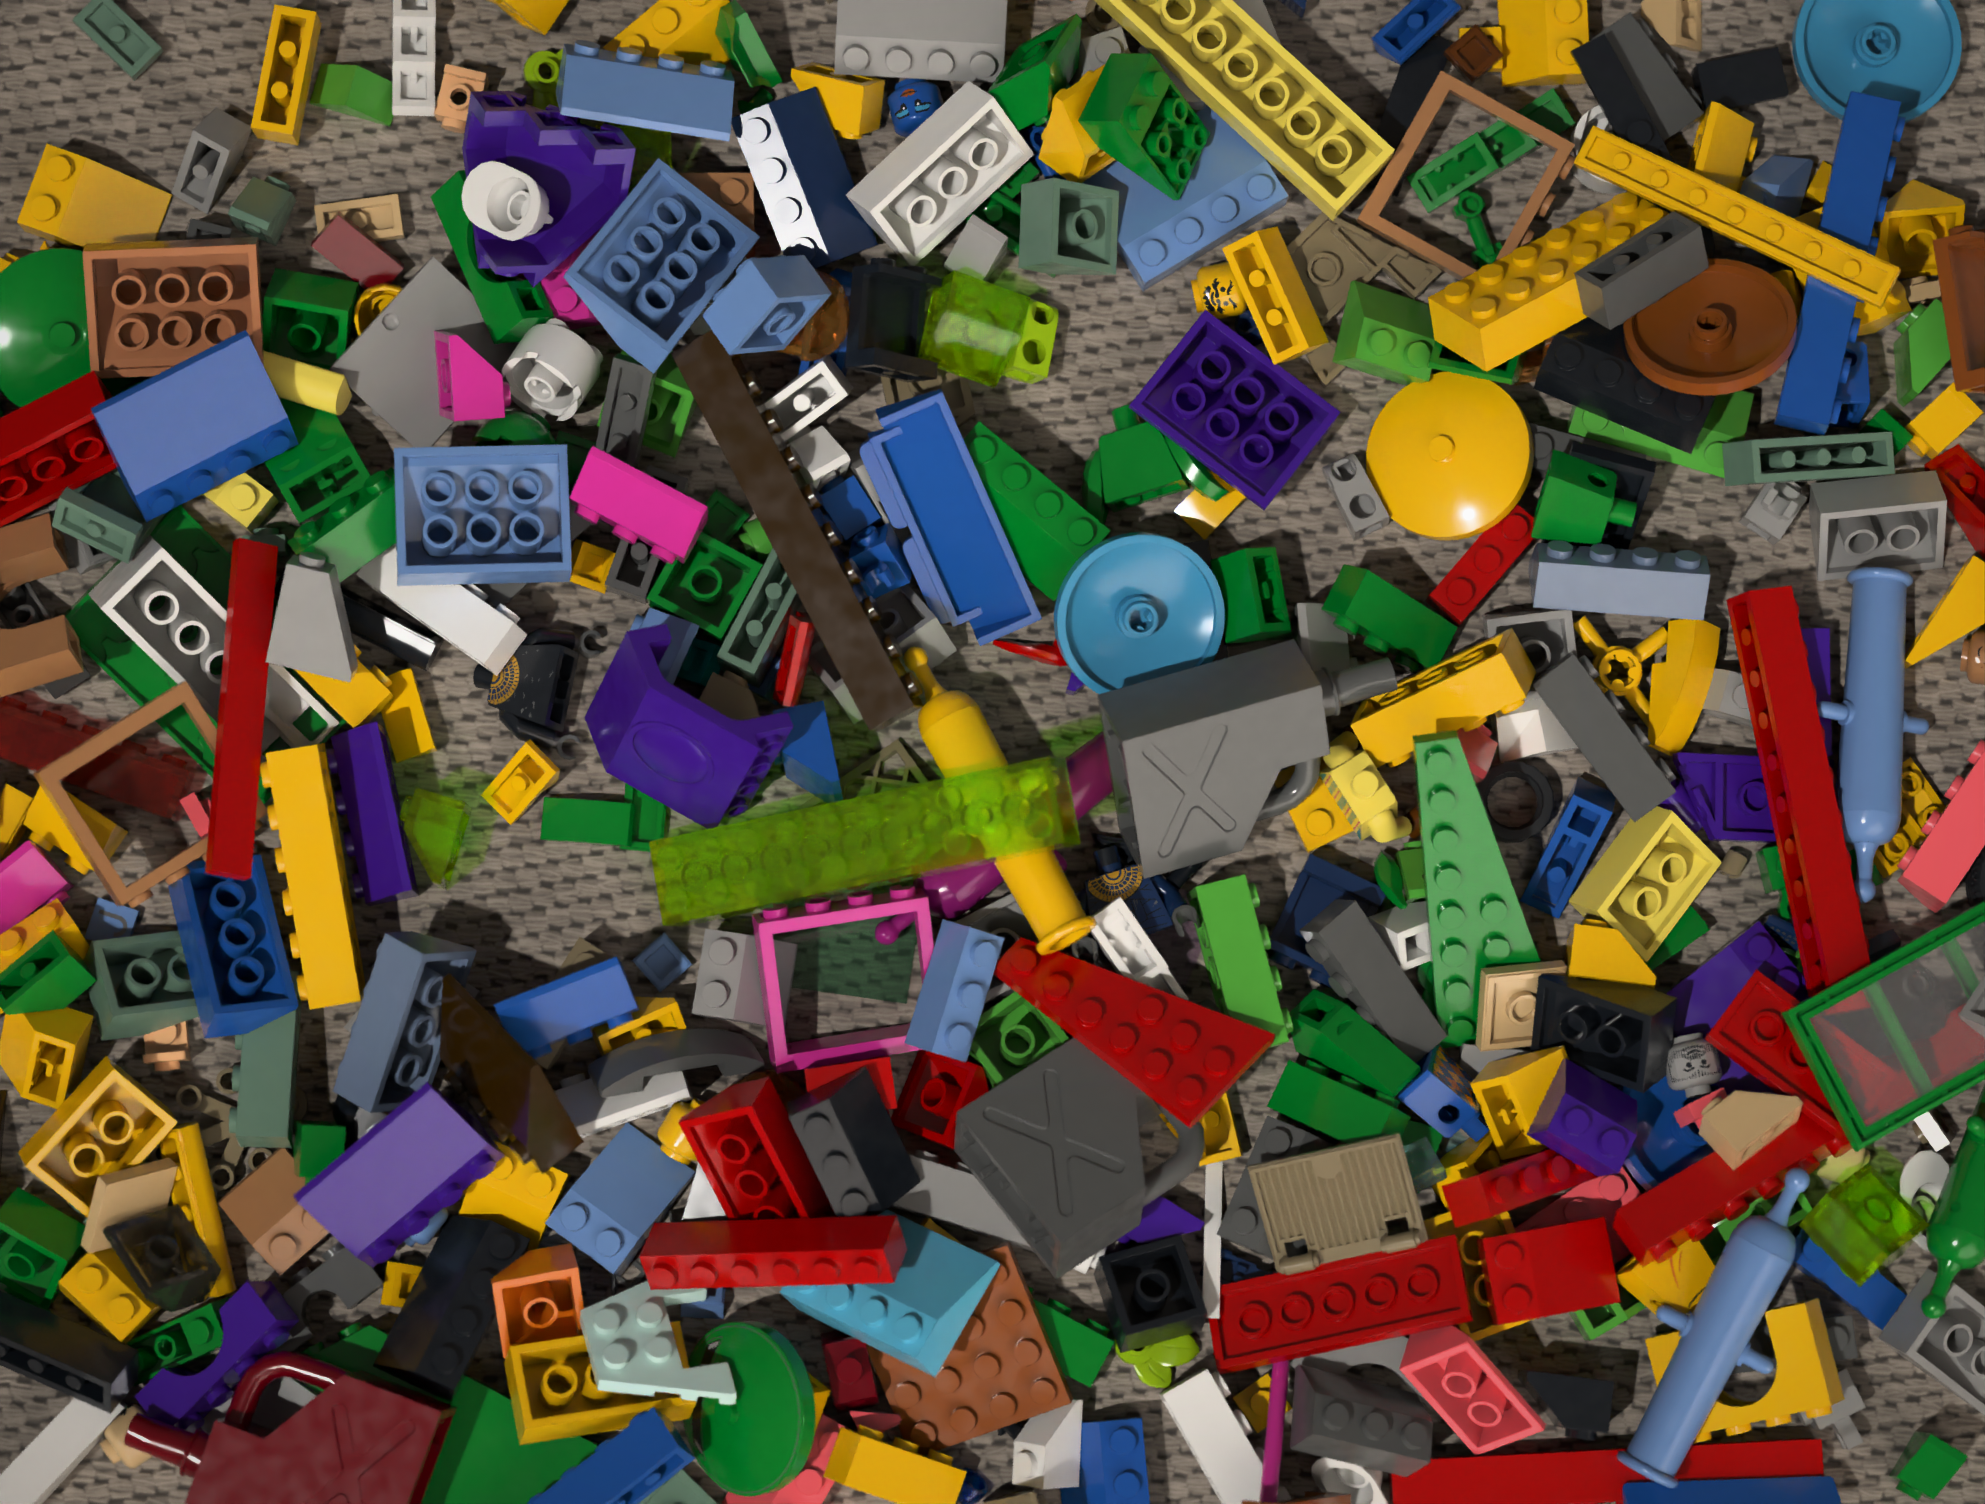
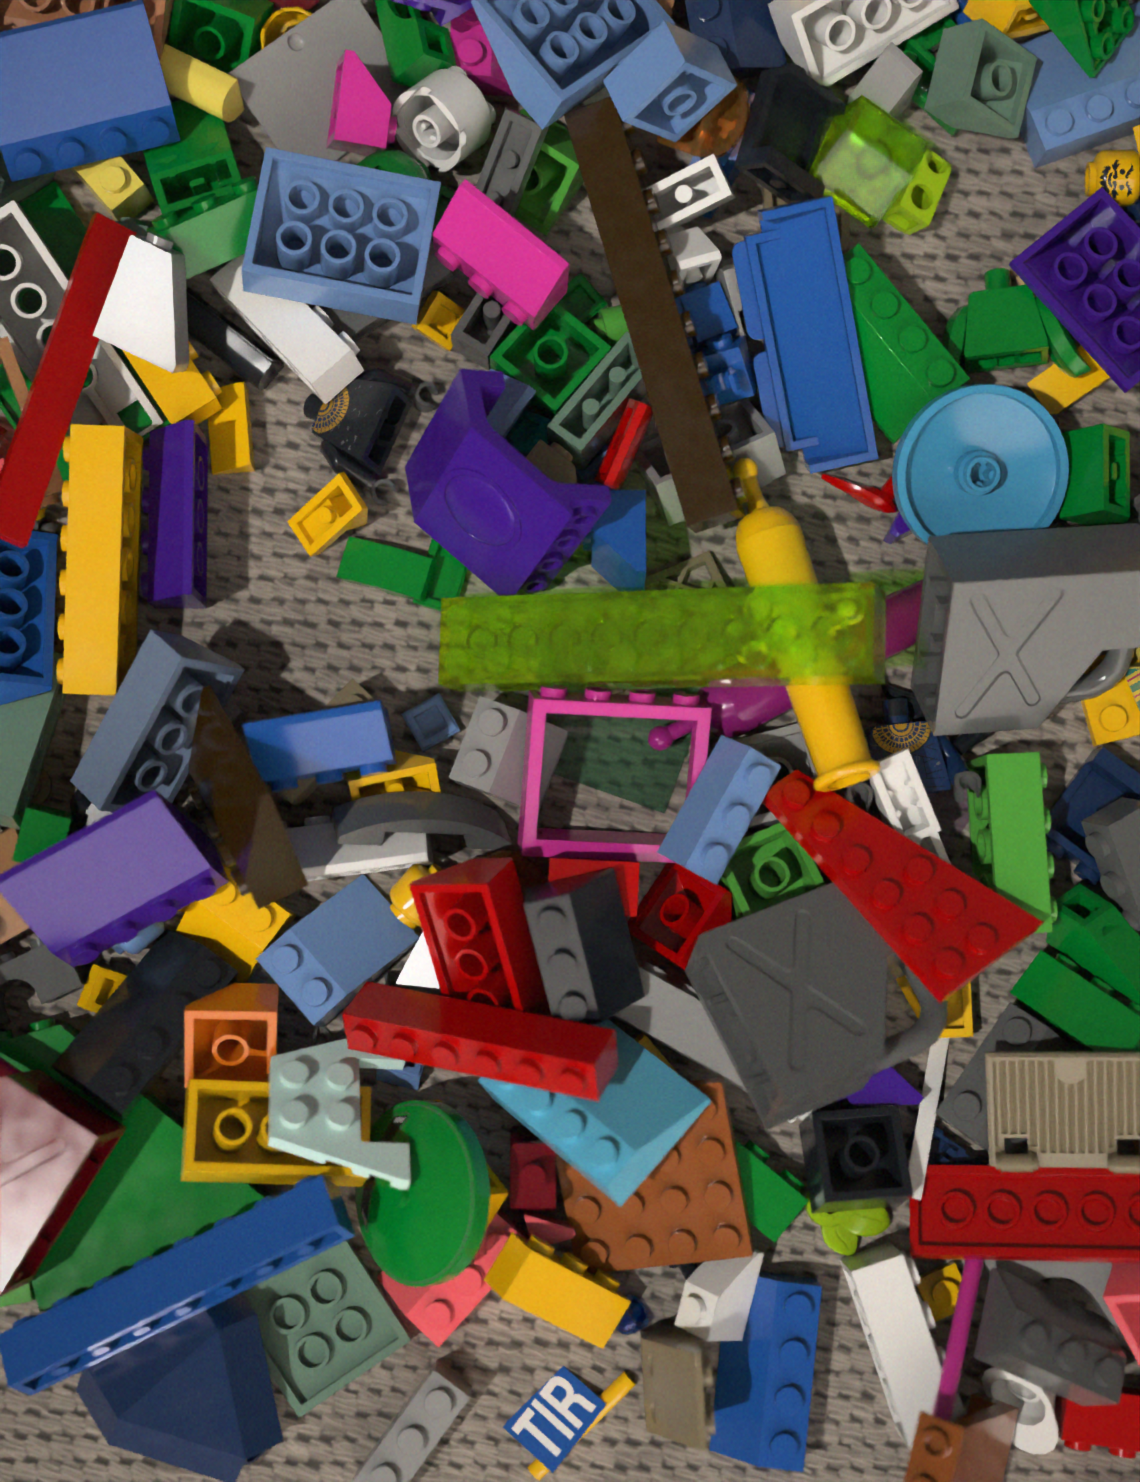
camera: 20 degrees right, 0 degrees up
(435, 831) = (232, 546): clear neon green slope -> none

